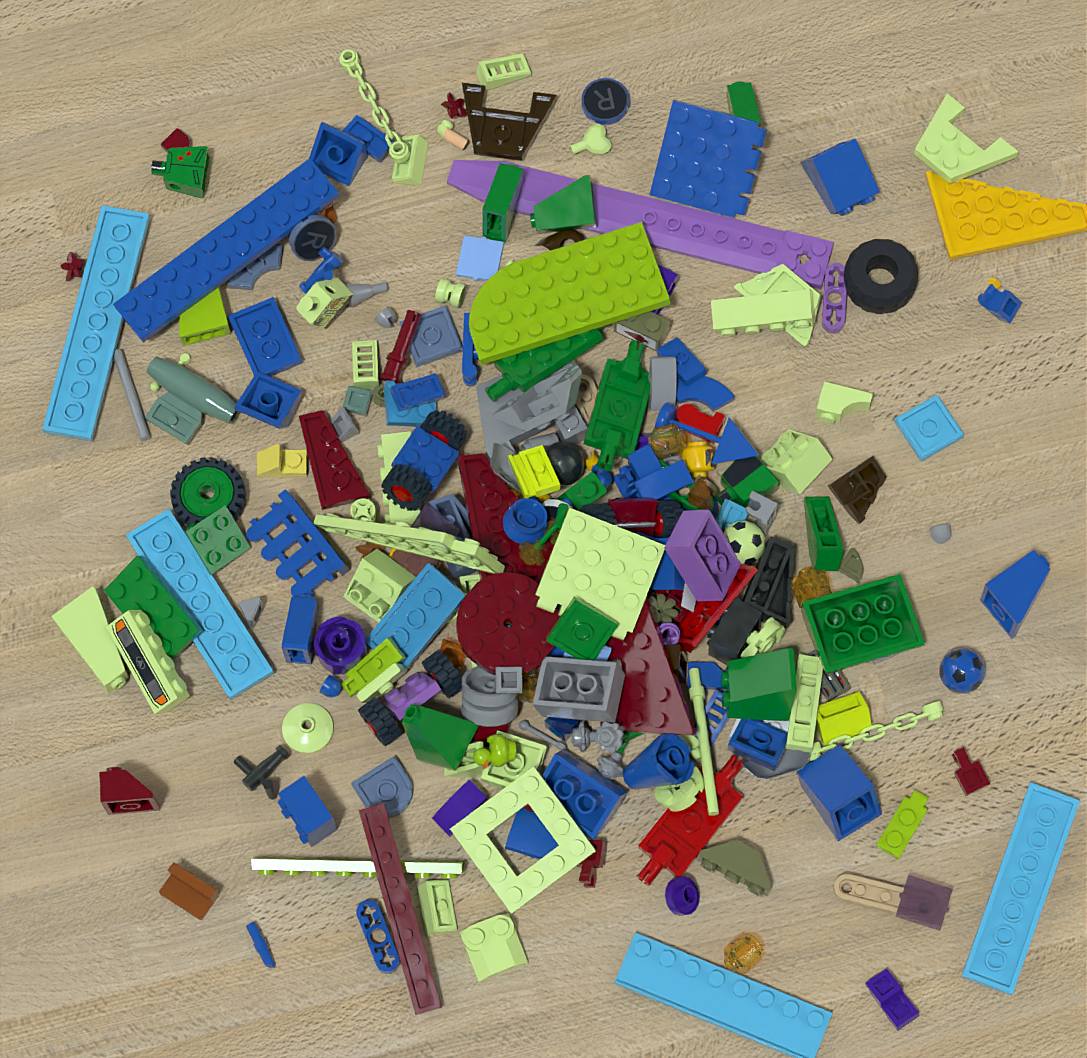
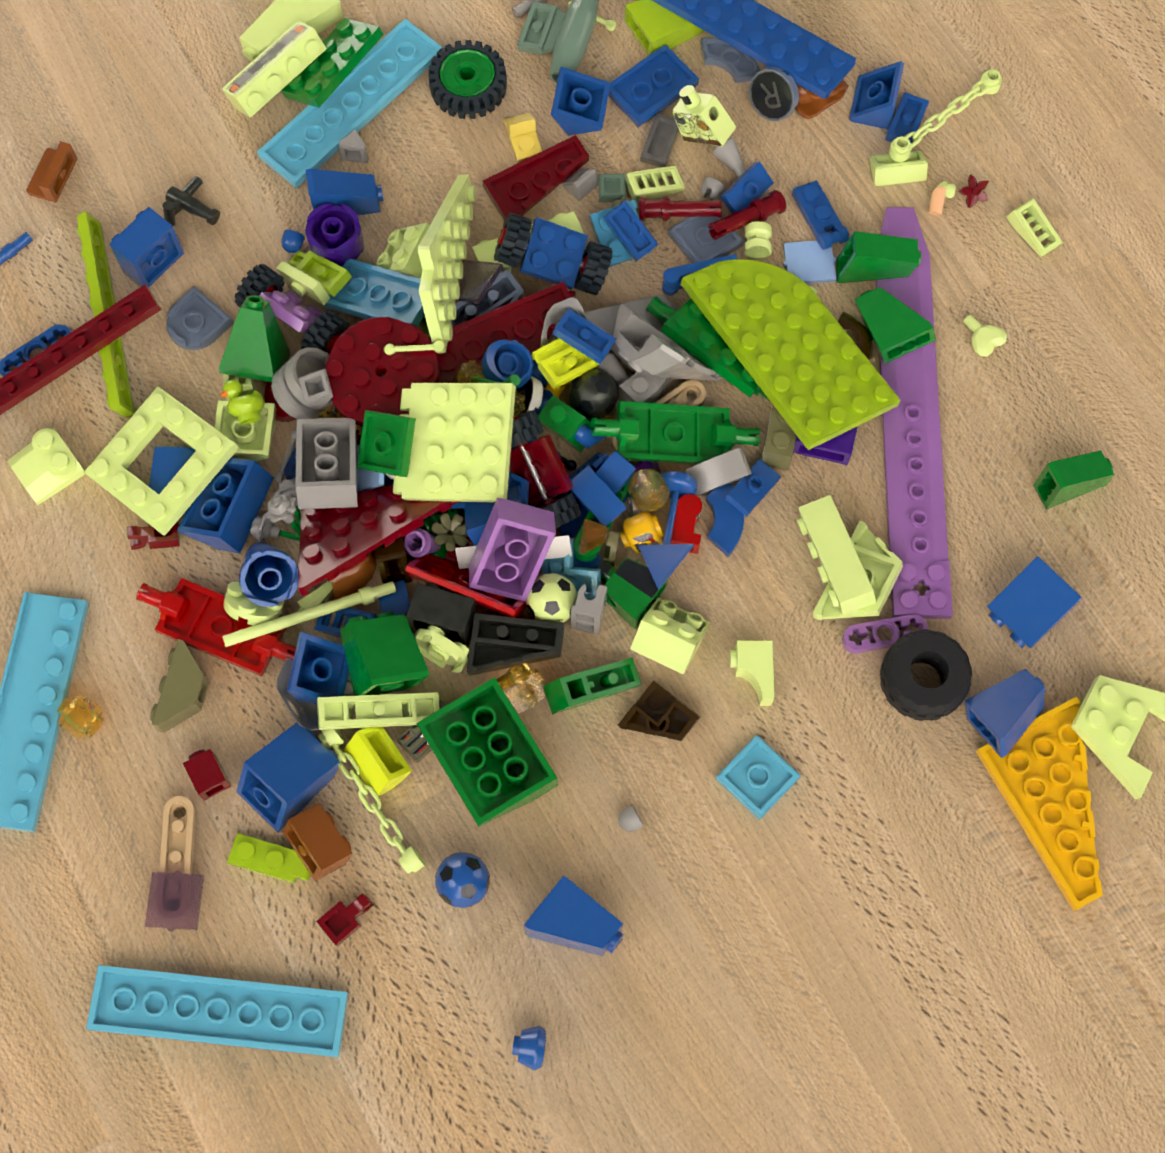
camera: 70 degrees right, 0 degrees up
(124, 793) = (133, 83): dark red slope -> none
(217, 539) = (418, 94): green hinge -> none
(309, 551) = (469, 159): blue fence -> none
(309, 739) = (247, 244): yellowish green dish -> none
(321, 347) = (660, 141): none -> flat silver tile
(324, 270) = (747, 115): blue piece -> none
(365, 508) = (484, 216): yellowish green wheel -> none
(397, 288) = (747, 188): none -> blue plate
(422, 286) = (757, 210): none -> dark red pin
(437, 907) = (79, 403): yellowish green slope -> none
(439, 236) = (820, 215): none -> blue plate
(459, 806) = (191, 393): dark purple slope -> none
(500, 131) = (962, 244): dark brown wing -> none
(505, 566) = (438, 347): none -> yellowish green hinge
(521, 449) = (584, 336): none -> blue plate
(605, 101) = (1037, 337): black tile -> none
(682, 896) = (132, 636): dark purple plate -> none
(707, 159) = (1001, 449): blue hinge -> none
(819, 858) = (206, 774): none -> dark red brick
(852, 566) = (565, 730): olive tile -> none
(892, 999) = (61, 894): dark purple slope -> none
(902, 778) = (317, 841): none -> dark orange brick
(925, 226) = (1006, 710): none -> blue slope
(1000, 304) = (934, 819): blue piece -> none

